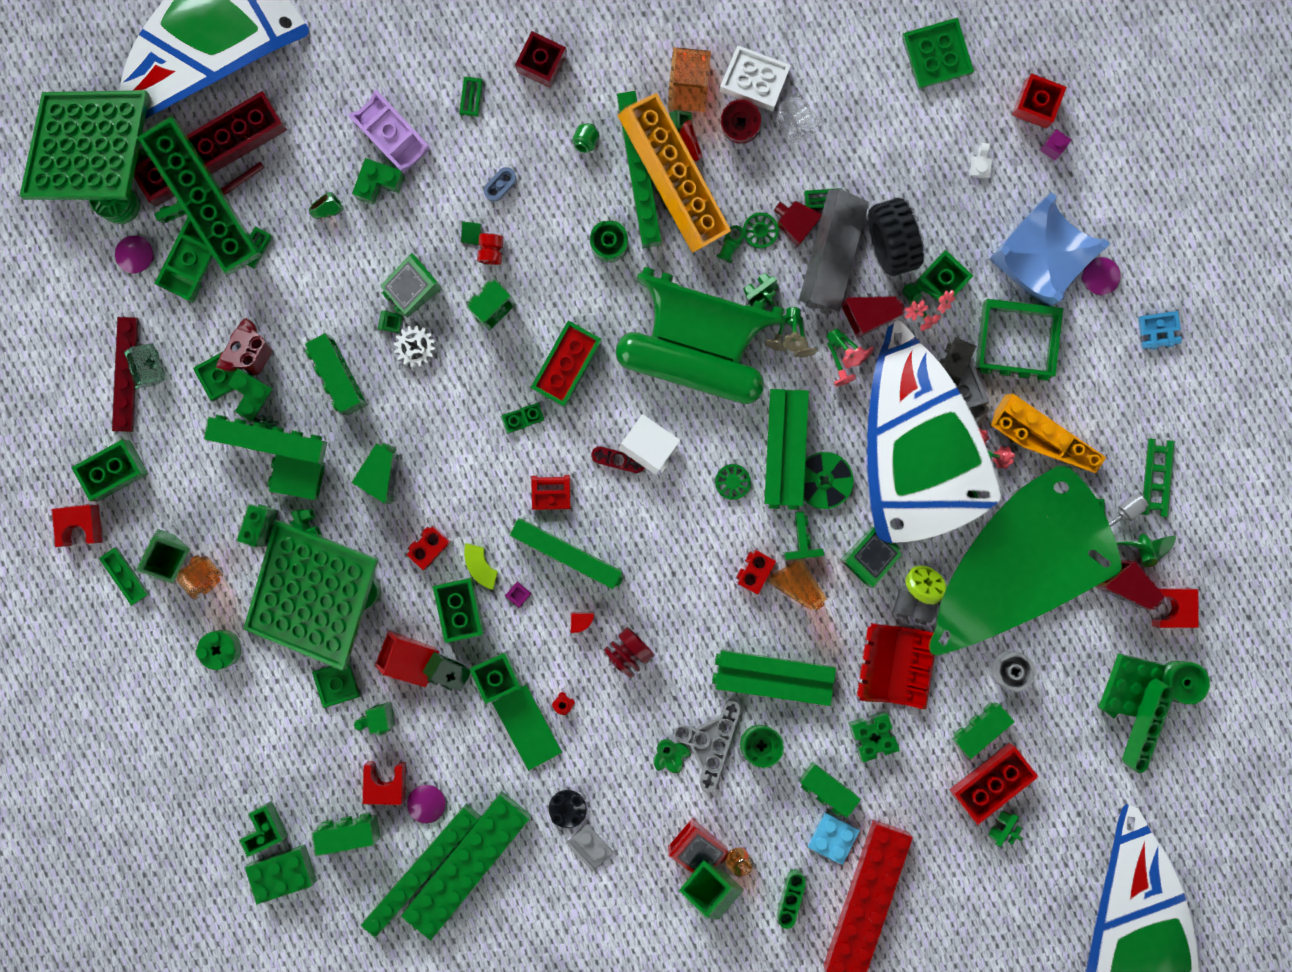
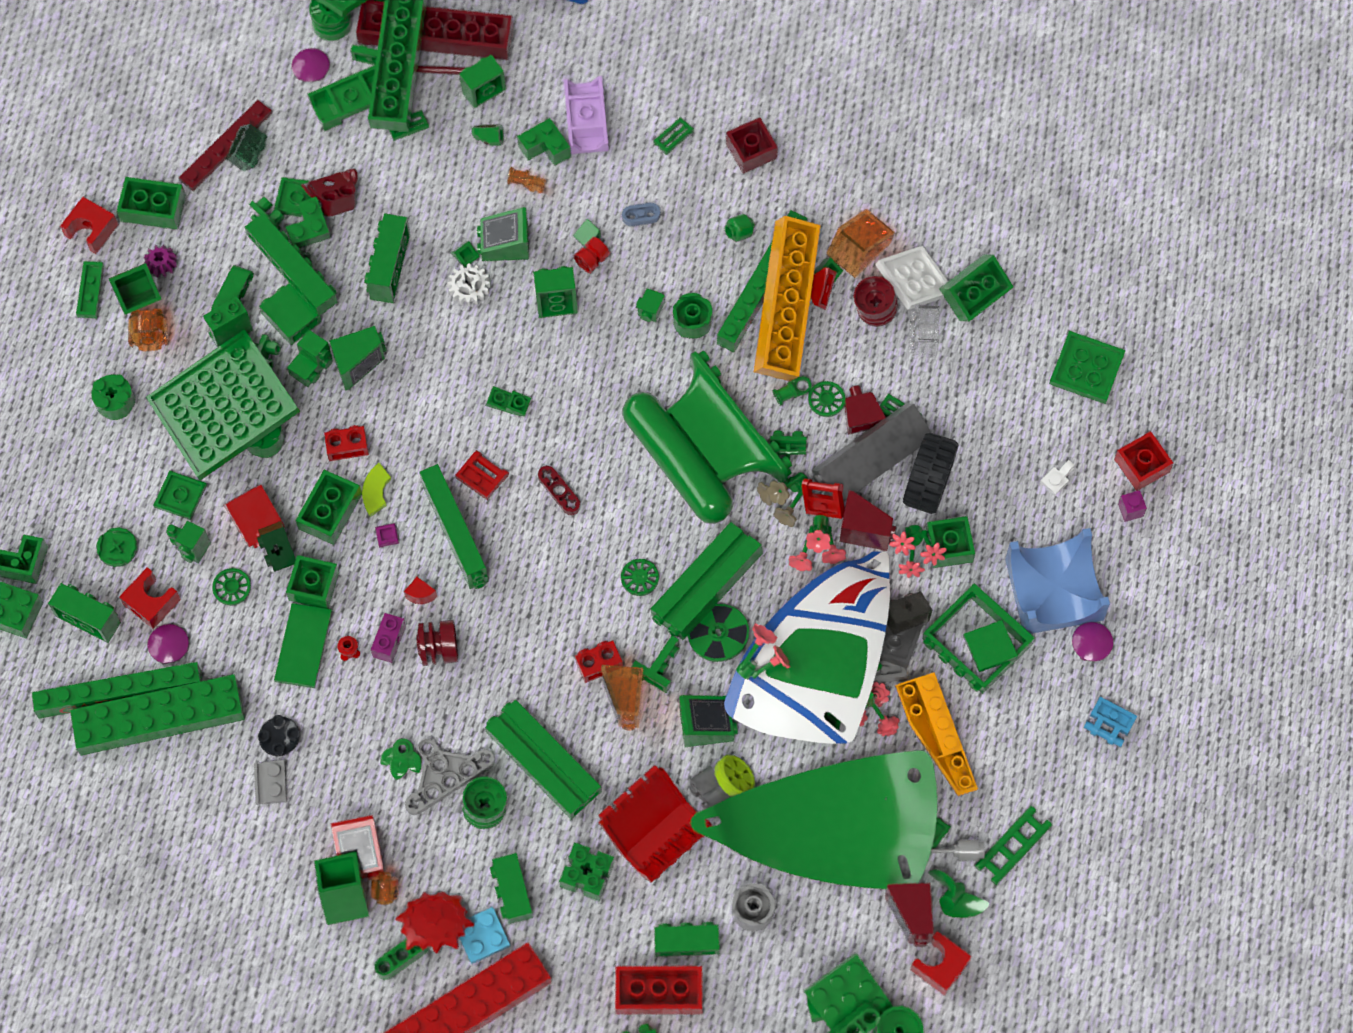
camera: 45 degrees right, 20 degrees down
(161, 504) = (167, 258): none -> magenta gear
(199, 408) = (263, 206): none -> green hips
(235, 492) = (234, 285): none -> green beam
(284, 166) = (482, 81): none -> green brick
(323, 760) = (116, 547): none -> green tile
(345, 504) = (312, 359): none -> green brick
(387, 224) = (524, 178): none -> clear orange connector
(435, 724) = (231, 586): none -> green wheel
(566, 364) = (578, 383): red brick -> none
(568, 257) = (650, 305): none -> green brick
(587, 675) = (388, 637): none -> magenta brick
(649, 445) = (594, 494): white brick -> none
(795, 859) = (434, 921): none -> red piece
(809, 51) = (976, 288): none -> green brick
(828, 321) = (823, 504): none -> red plate
(887, 476) = (748, 666): none -> plant
(1037, 340) = (990, 646): none -> green tile

